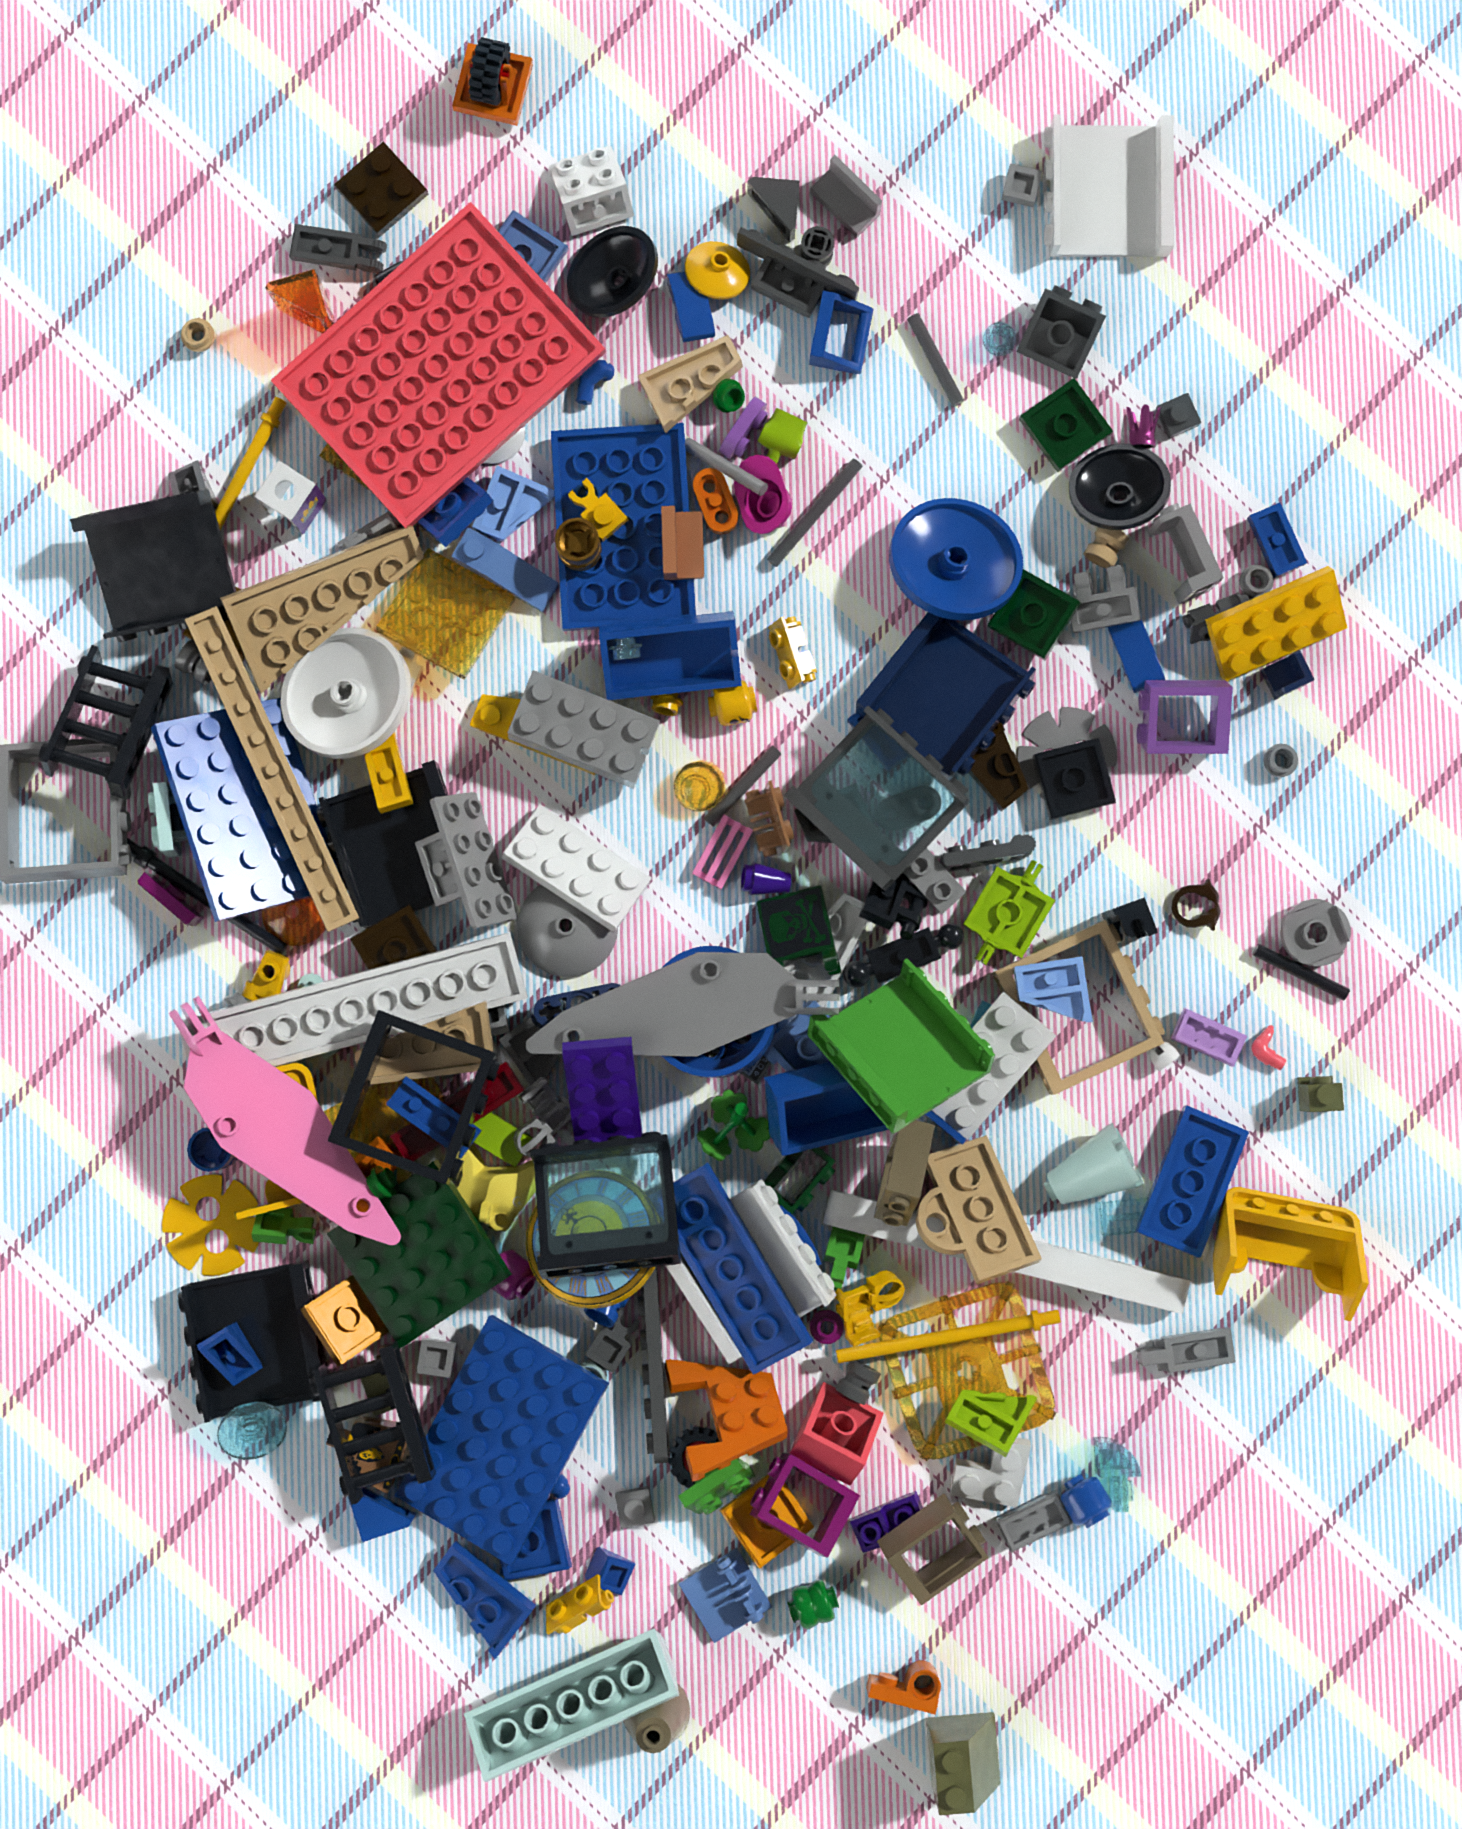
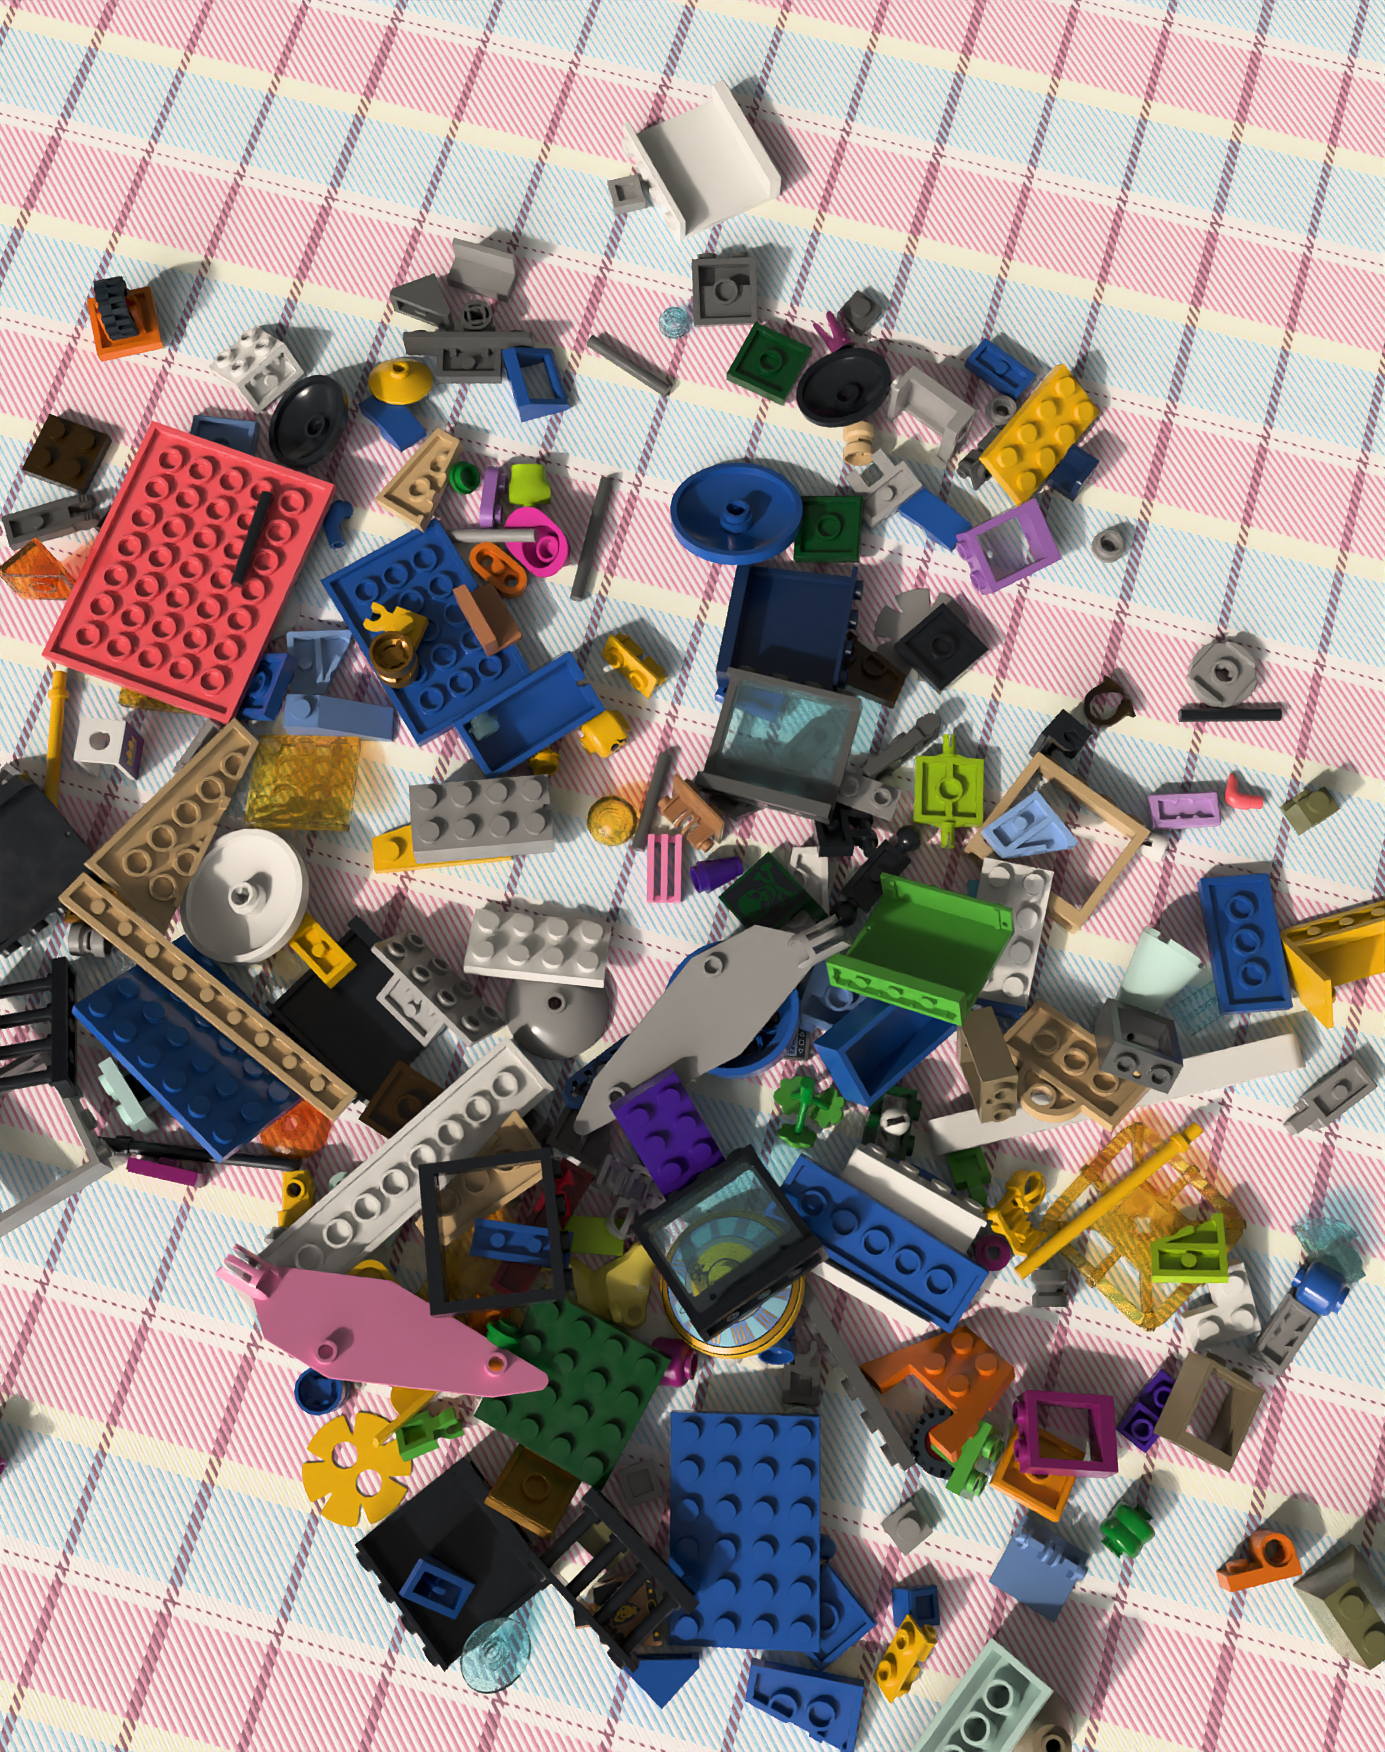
camera: 30 degrees left, 10 degrees down
(506, 365) = (252, 539): none -> black bar
(802, 1170) = (897, 1129): none -> white hinge
(837, 1434) = (1058, 1350): coral slope -> none
(1056, 1209) = (1137, 1041): none -> dark grey window

